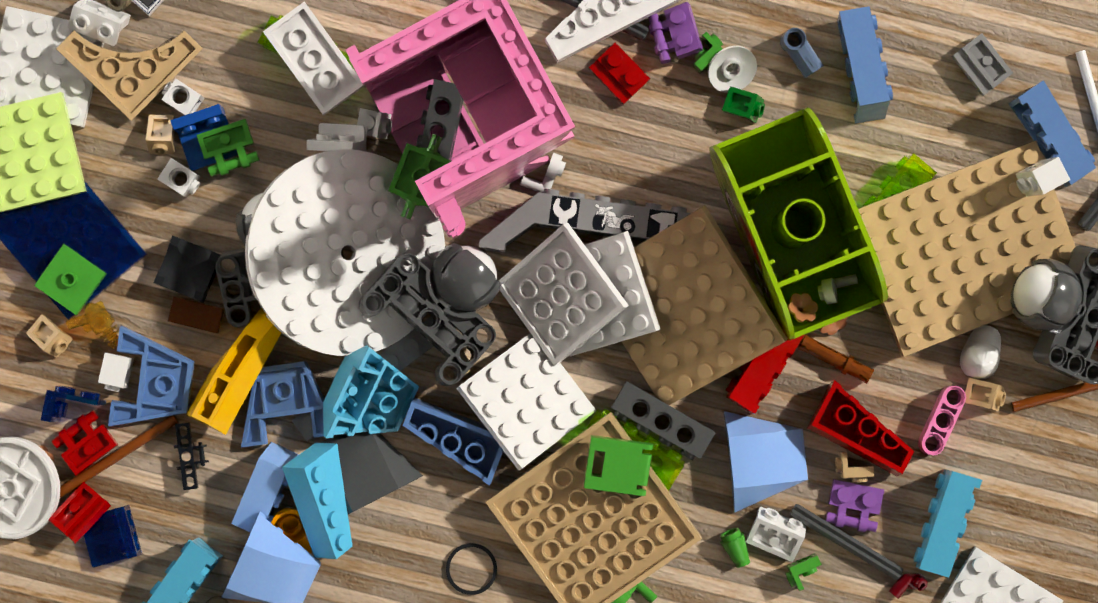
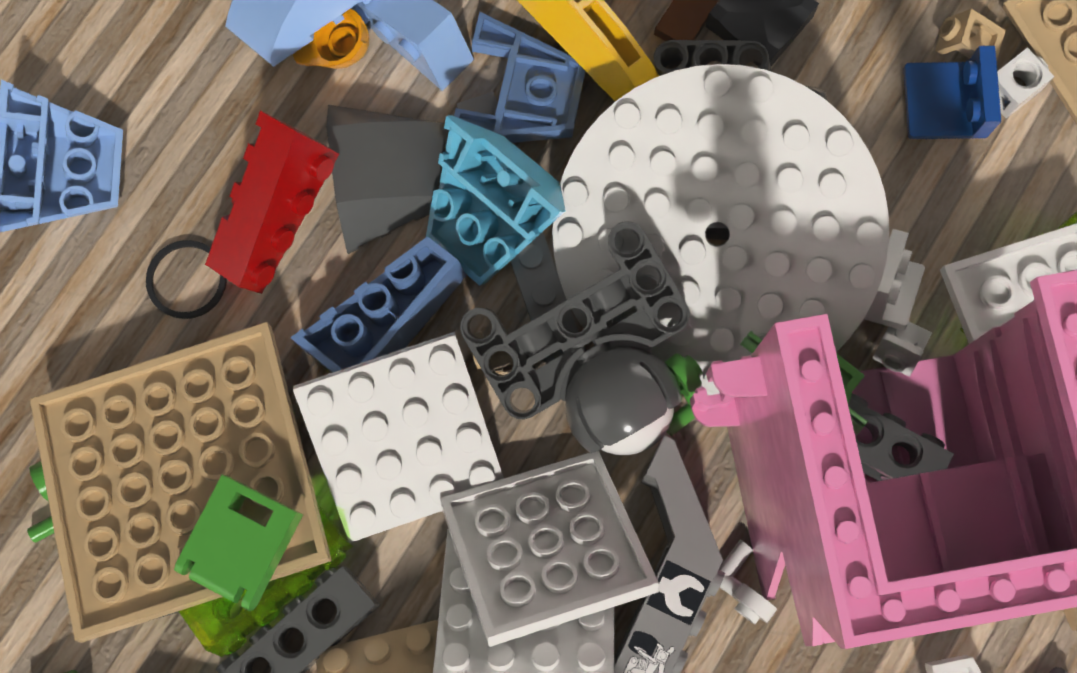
camera: 110 degrees right, 10 degrees down
(169, 174) = (905, 29): white brick -> none
(225, 140) = (939, 120): bright green plate -> none
(320, 499) = (363, 86): medium azure wedge -> none
(413, 527) = (269, 203): none -> red wedge
(437, 244) = (688, 377): none -> bright green plate

